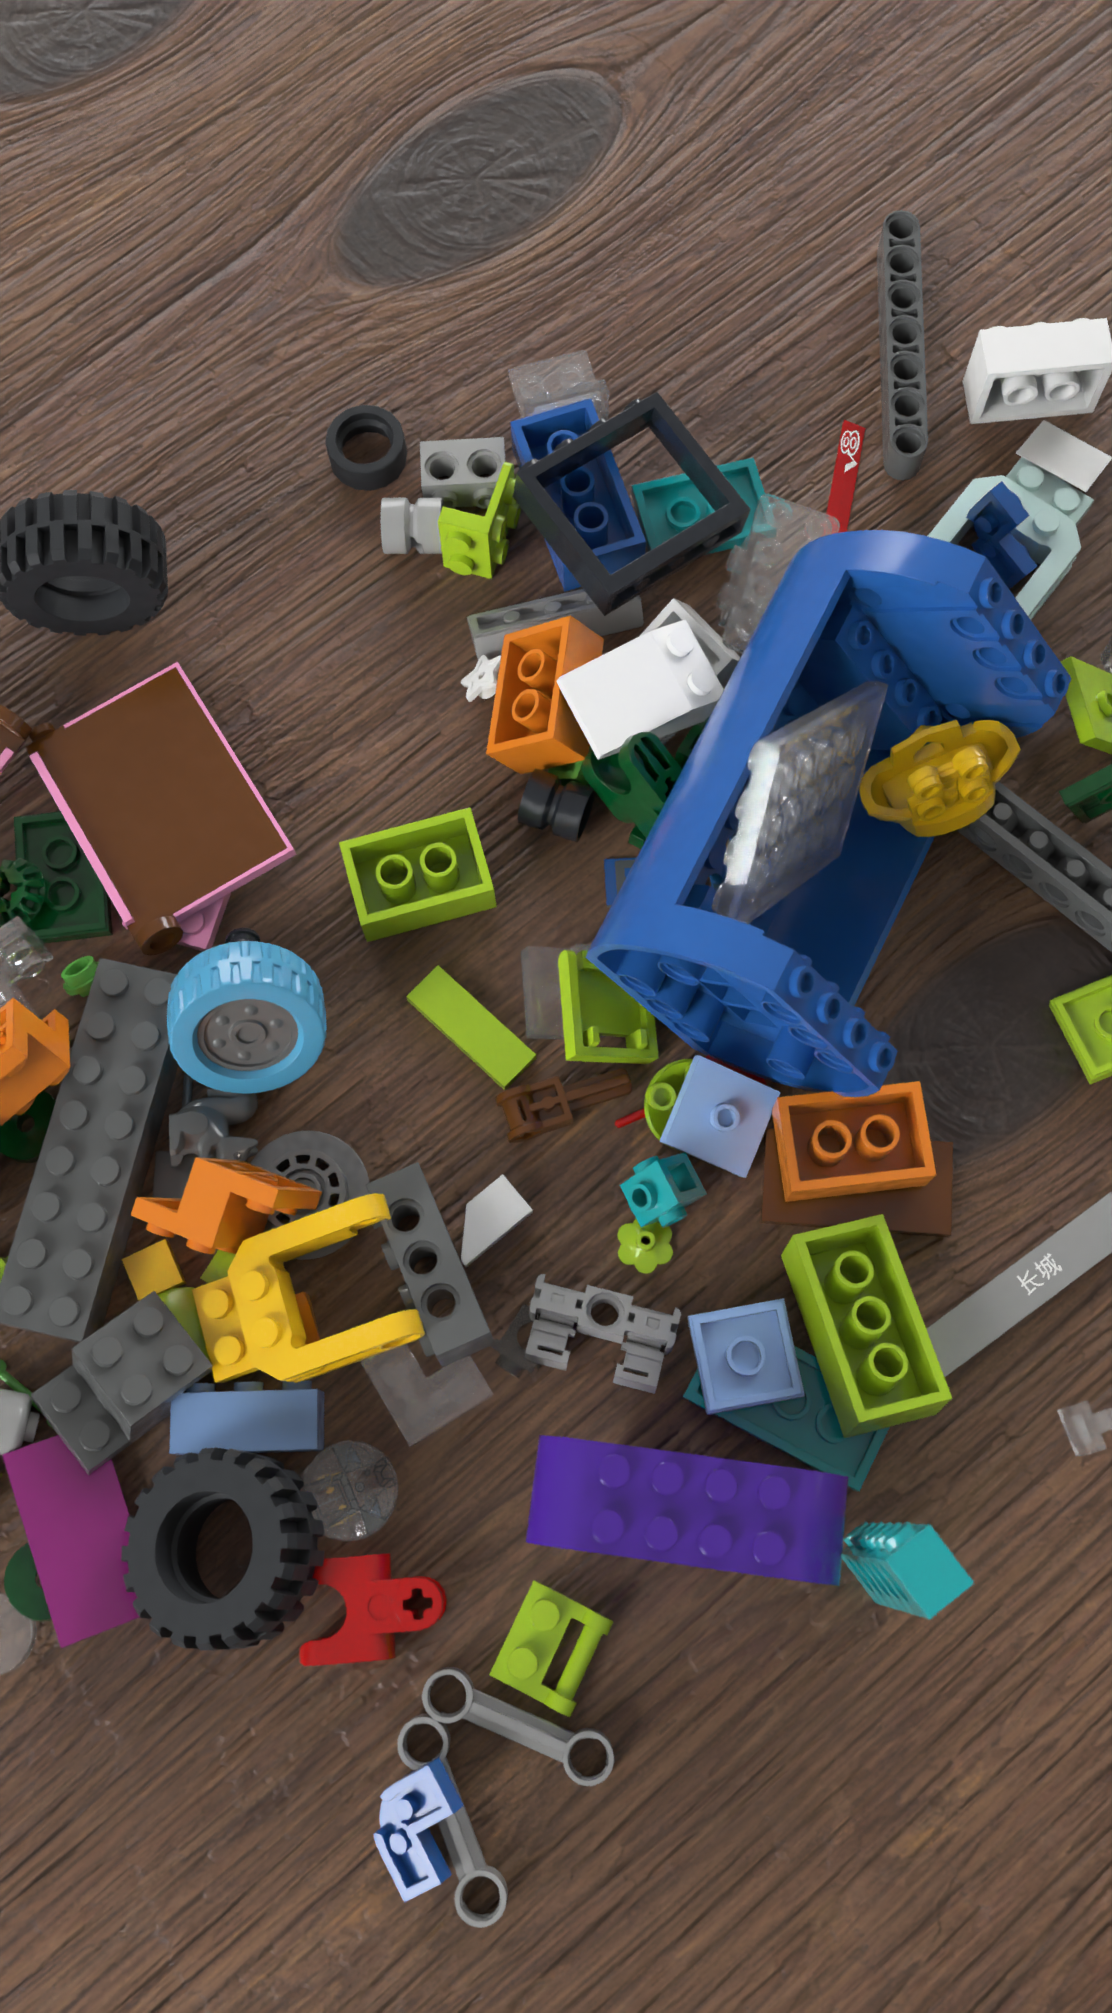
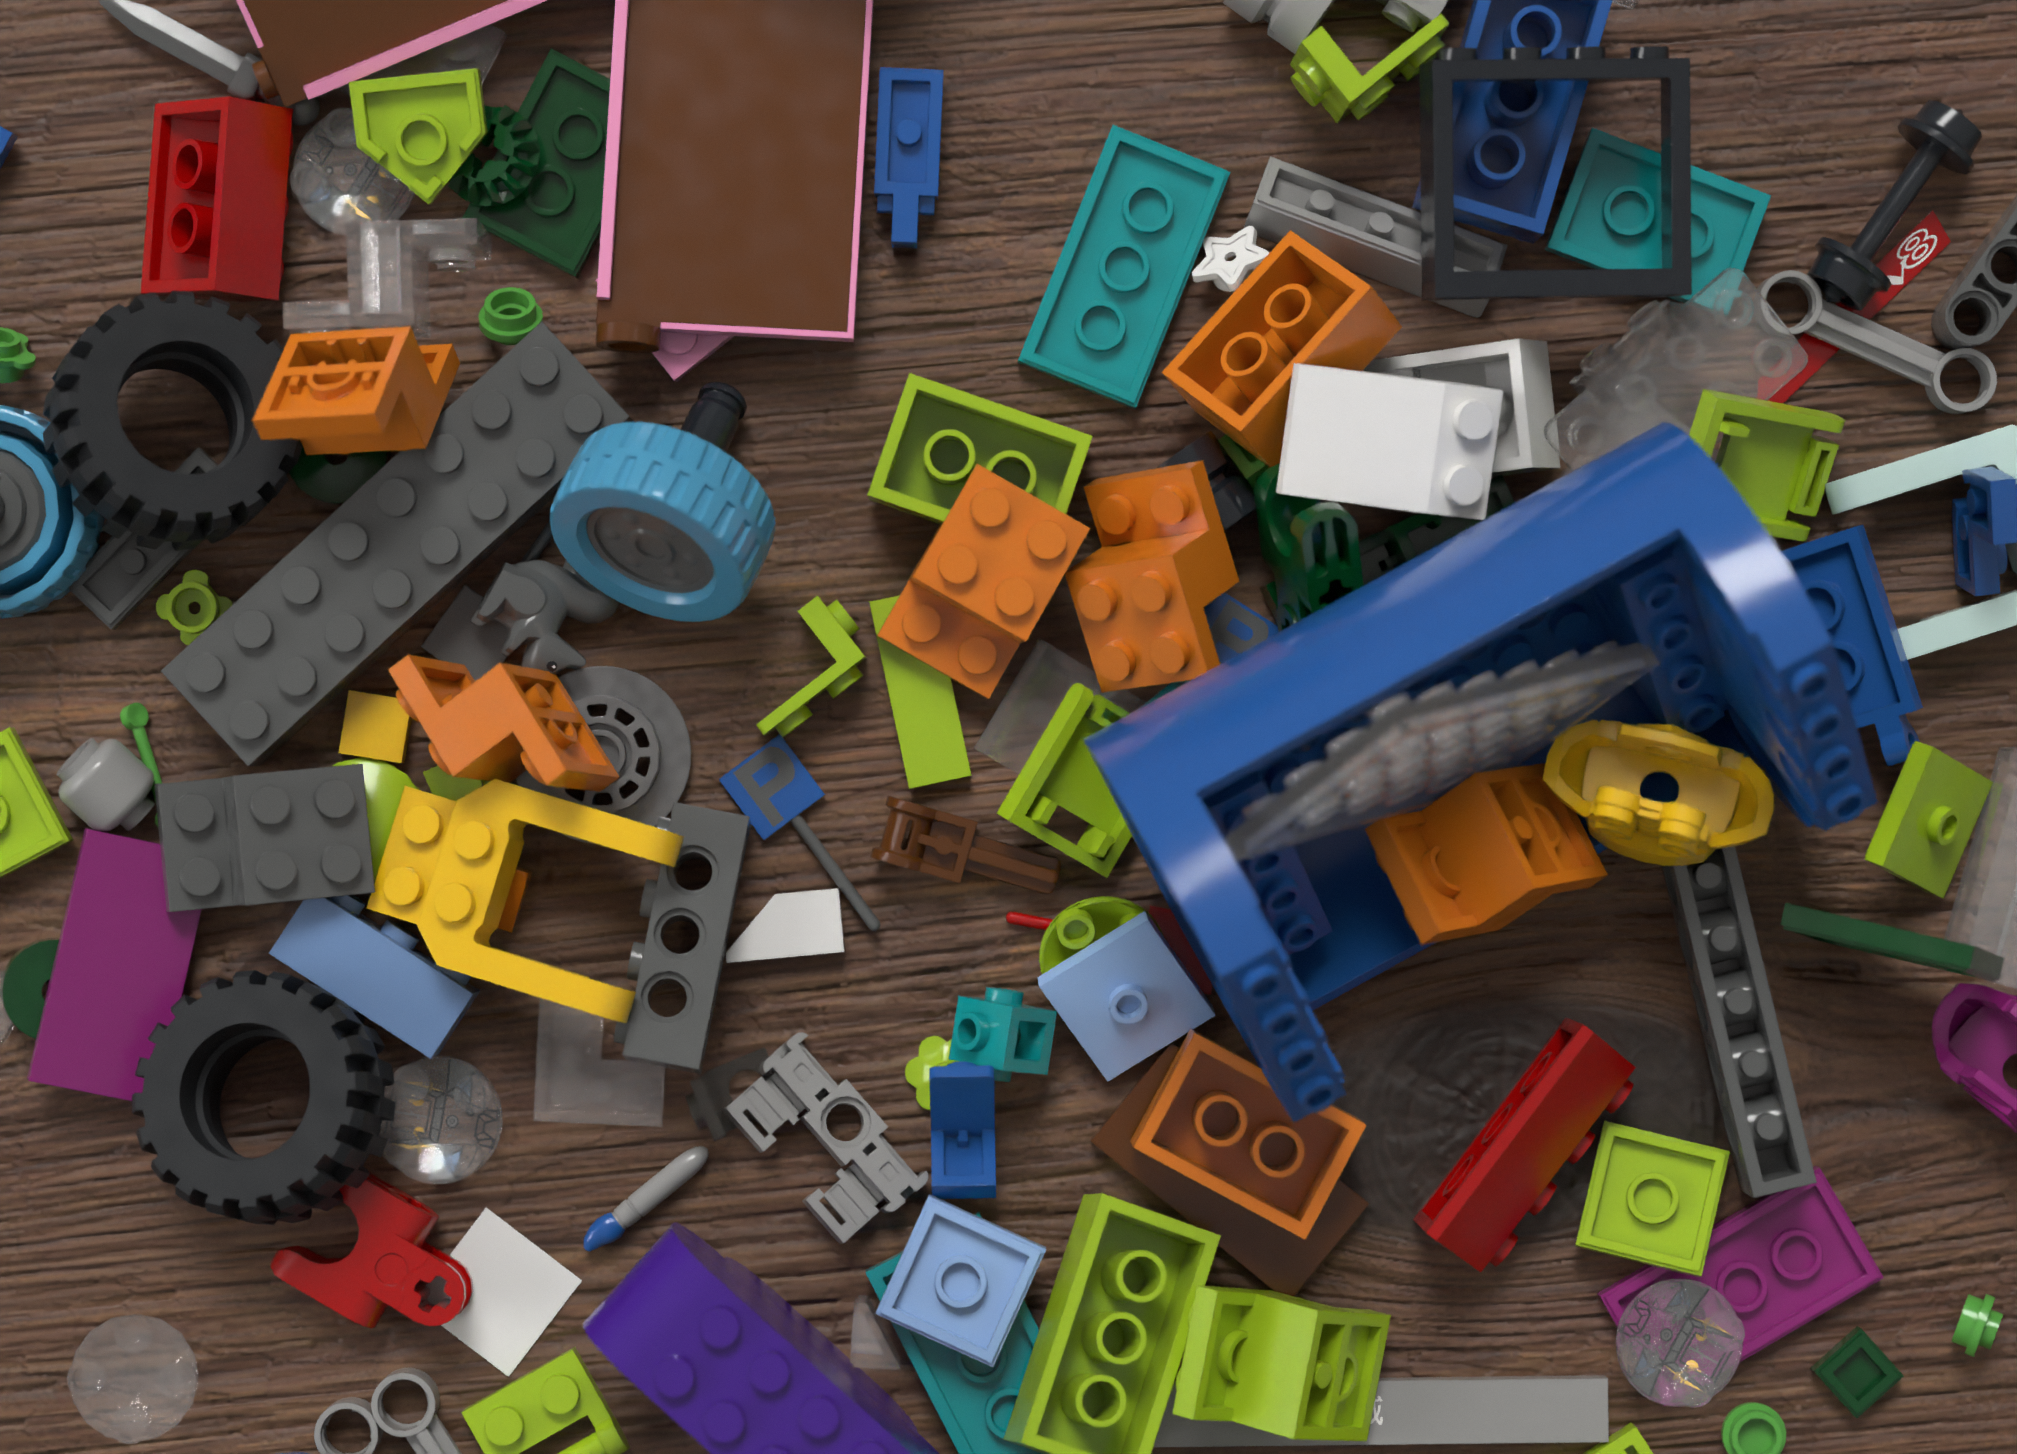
camera: 30 degrees right, 15 degrees up
(257, 1809) = (133, 1378): none -> clear dish
(258, 738) = (908, 148): none -> blue hinge
(397, 1026) = (834, 630): none -> lime bracket
(426, 725) = (1123, 267): none -> teal tile
(429, 1144) = (774, 791): none -> piece
(464, 931) = (983, 581): none -> orange bracket
(472, 1572) = (513, 1291): none -> white sticker
(505, 1481) = (613, 1224): none -> light grey piece
(560, 862) = (1152, 577): none -> orange bracket
(678, 1263) = (962, 1131): none -> blue bracket
(714, 1437) = (870, 1341): none -> clear slope
(825, 464) = (1941, 138): none -> black piece
(867, 878) = (1484, 854): none -> orange bracket
(878, 493) = (1884, 345): none -> light grey piece
(976, 1267) = (1281, 1364): none -> lime bracket
(1017, 1041) = (1525, 1145): none -> red slope

